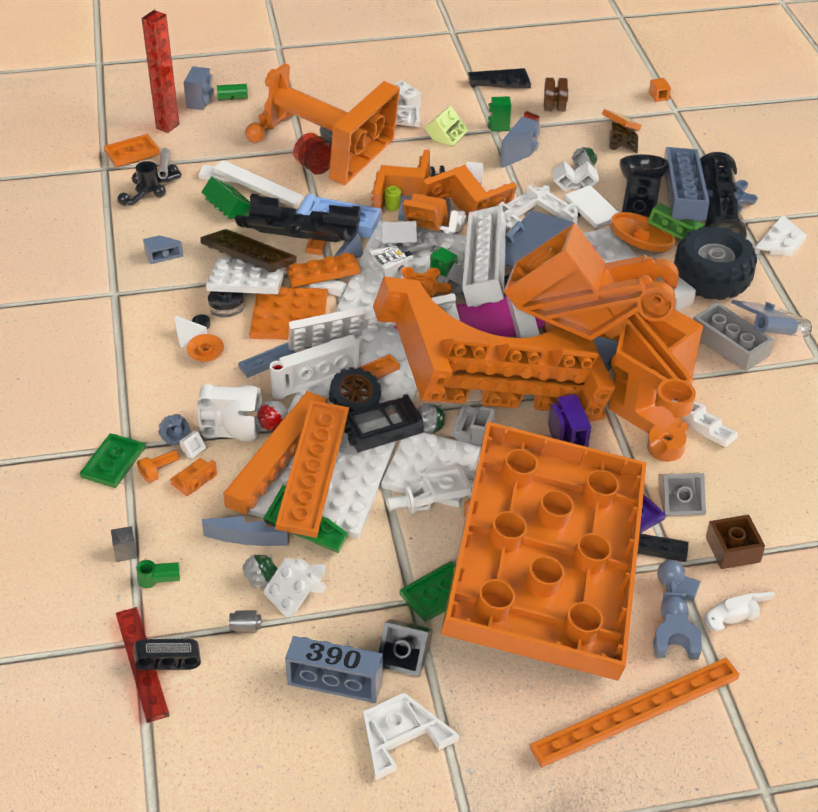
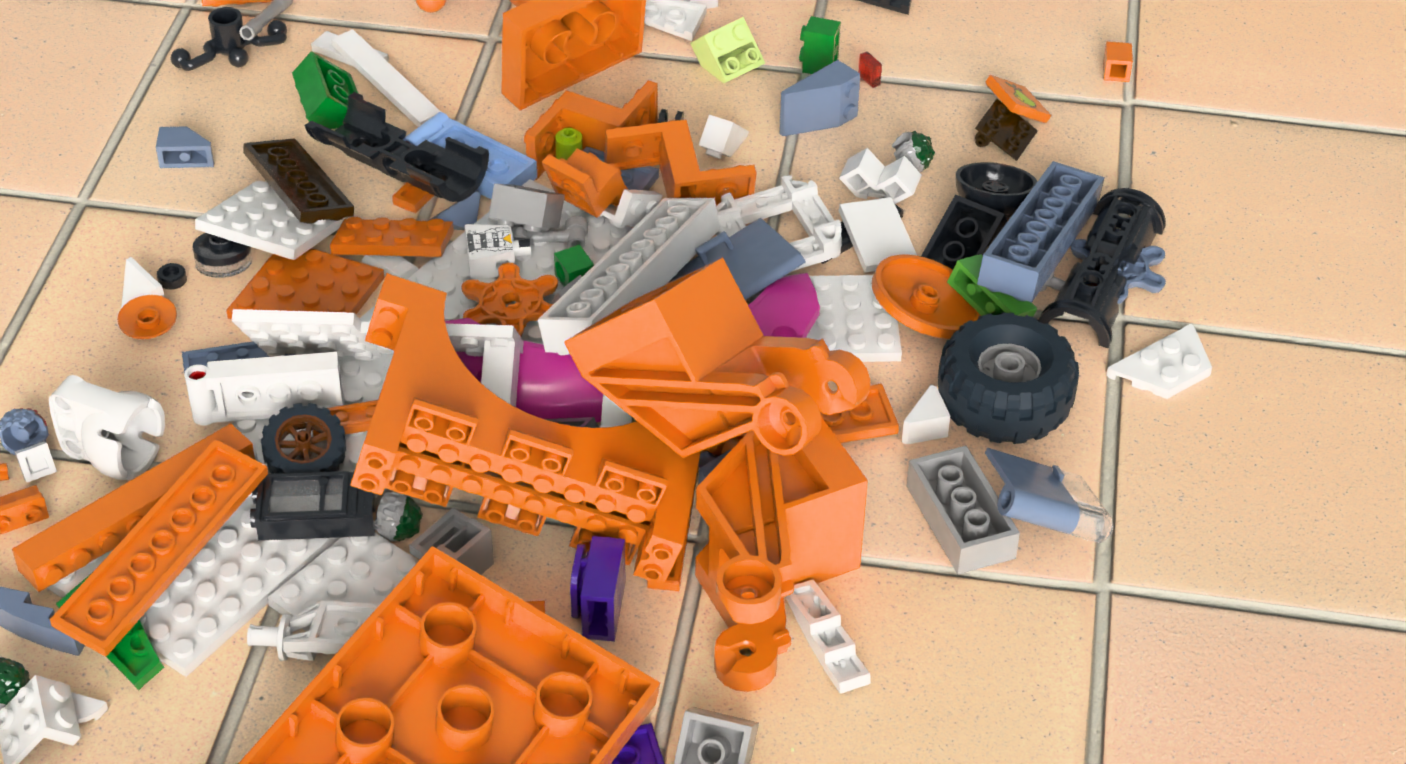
camera: 20 degrees right, 0 degrees up
(271, 414) = (163, 443): red piece -> none
(313, 153) = (483, 47): clear red wheel -> none
(555, 94) = (930, 33): reddish brown wheel -> none

